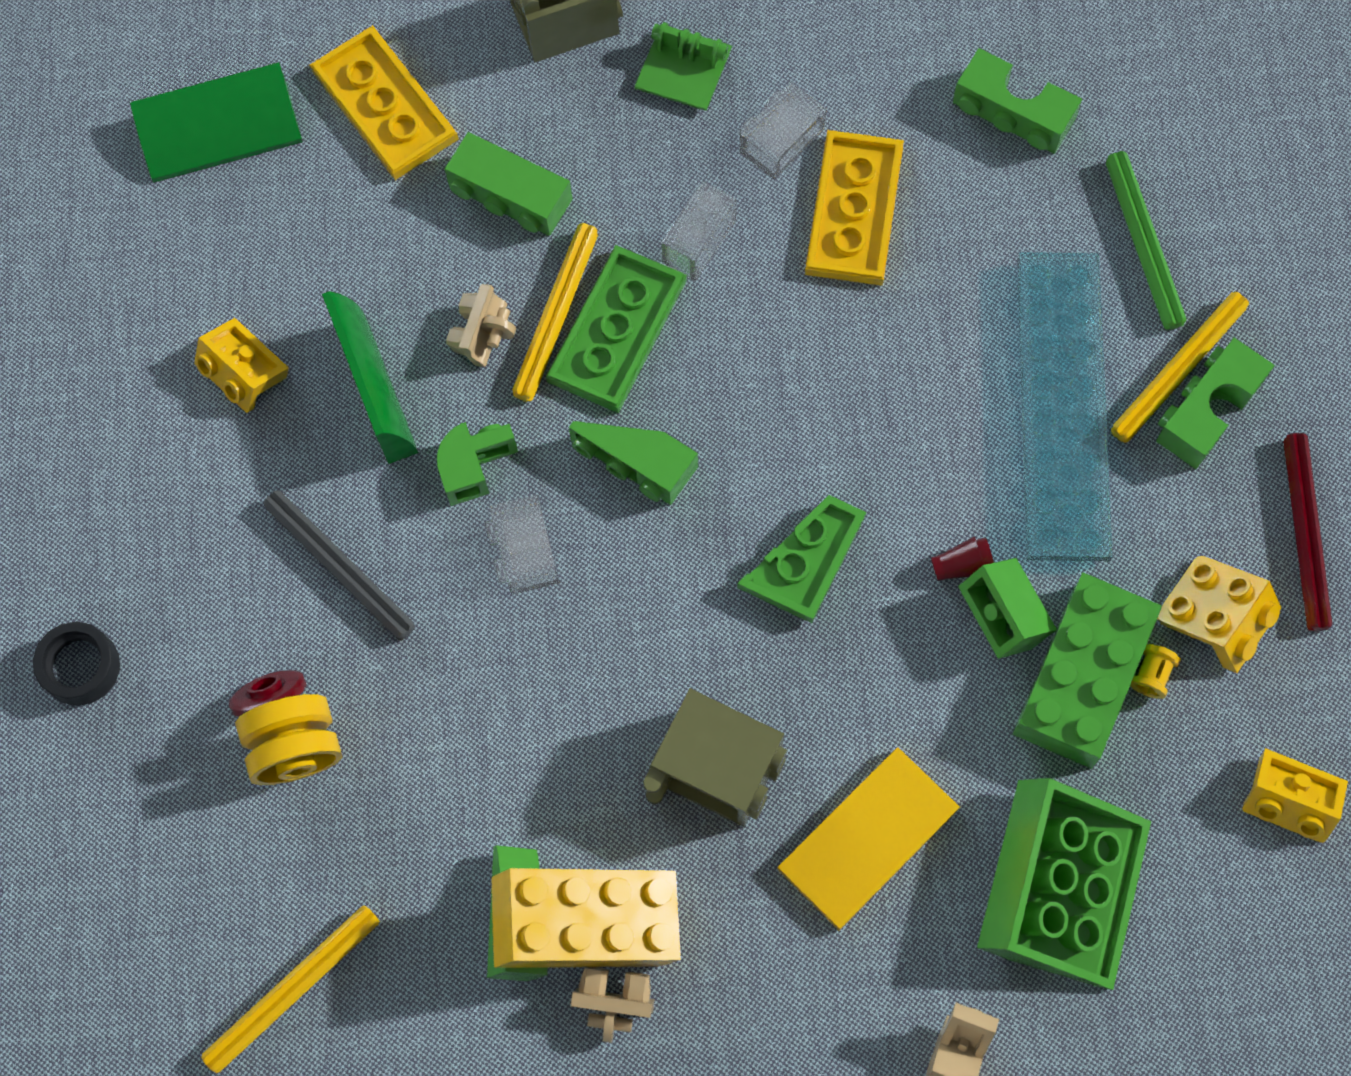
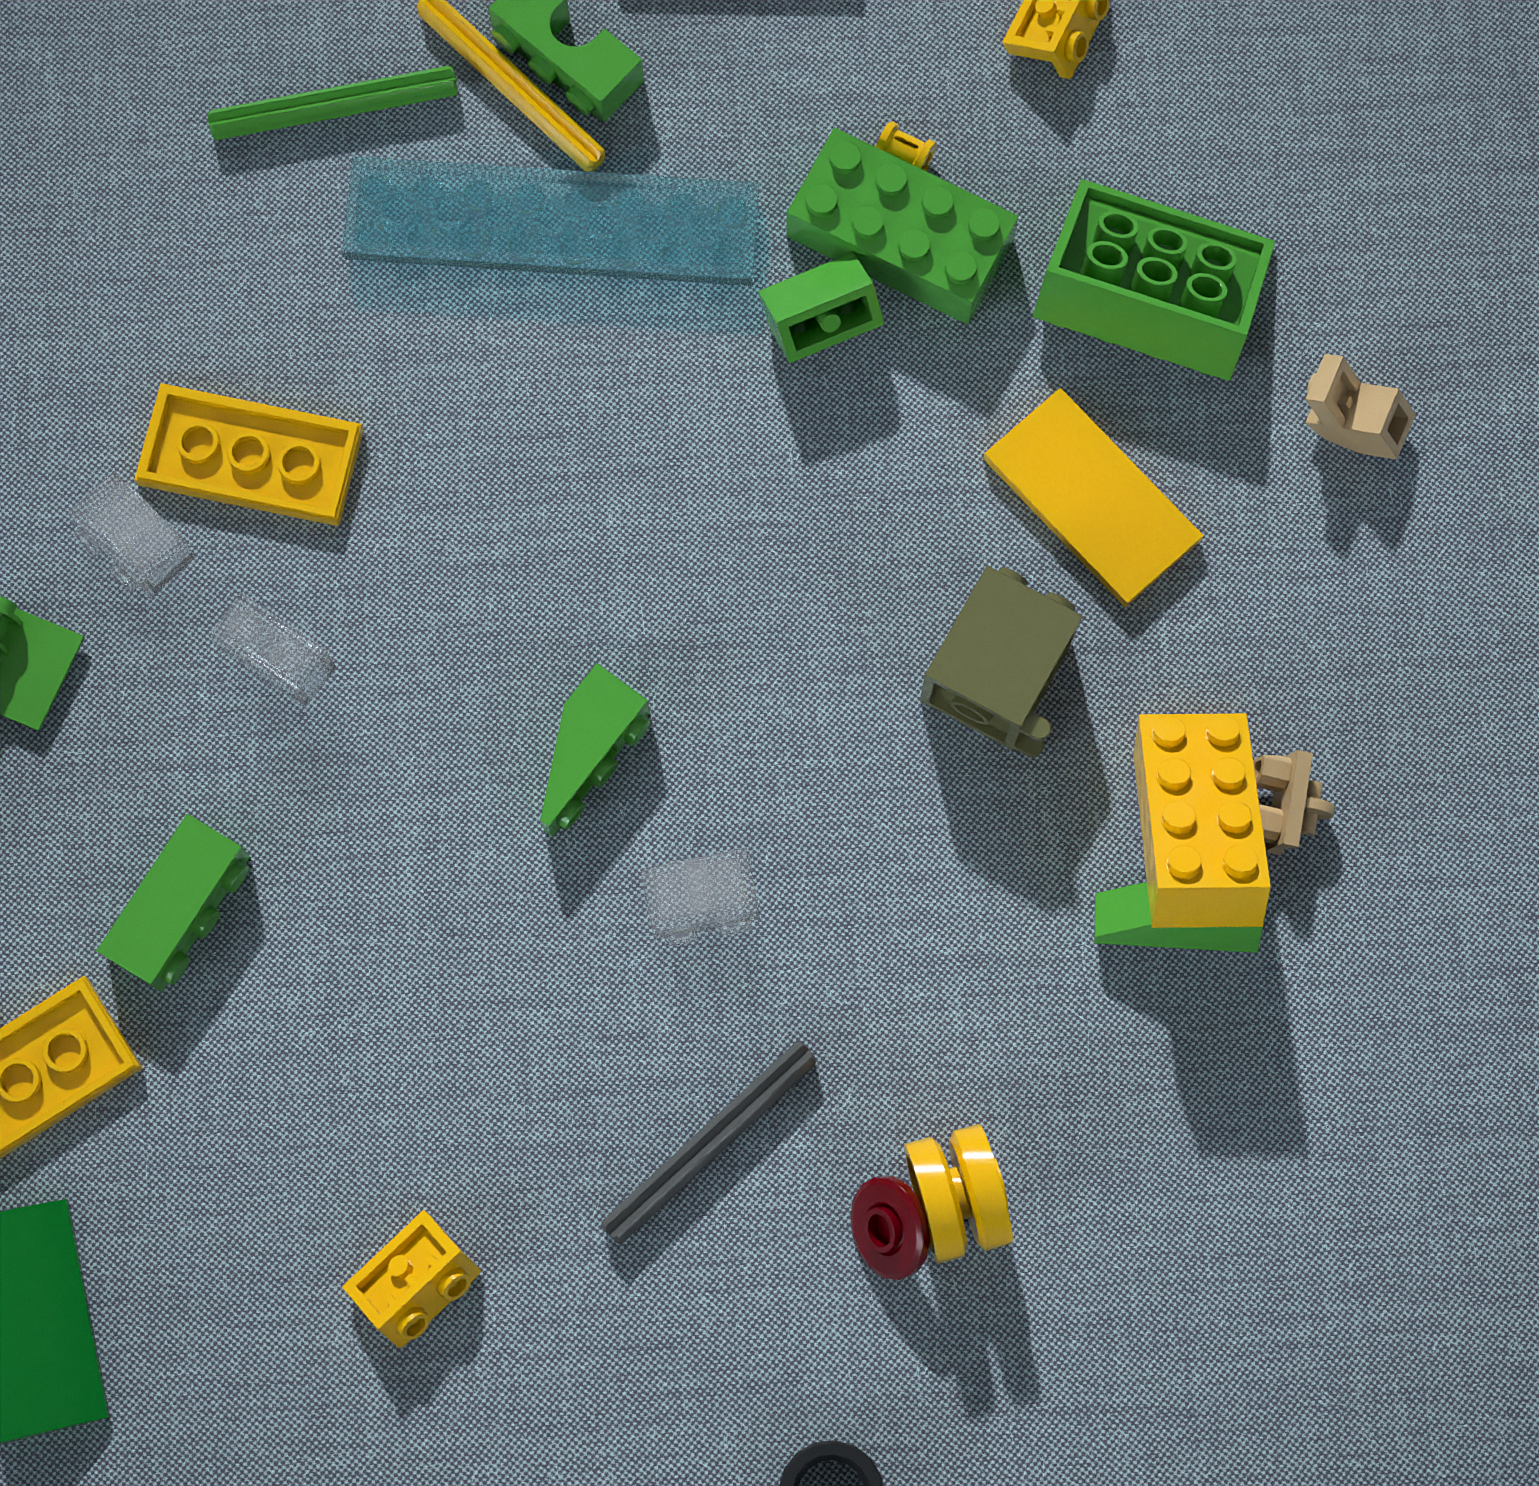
camera: 90 degrees left, 5 degrees up
(290, 989) = (1264, 1201): yellow axle -> none
(371, 377) = (453, 1094): green slope -> none
(462, 455) = (582, 975): bright green brick -> none
(485, 325) = (361, 938): tan hips -> none
(555, 312) = (368, 848): yellow axle -> none
(616, 328) = (398, 769): bright green tile -> none
(807, 561) = (740, 543): bright green wing -> none
(962, 559) = (751, 353): dark red cone -> none
(1038, 120) = (104, 273): bright green arch -> none
(1222, 609) = (829, 70): yellow bracket -> none

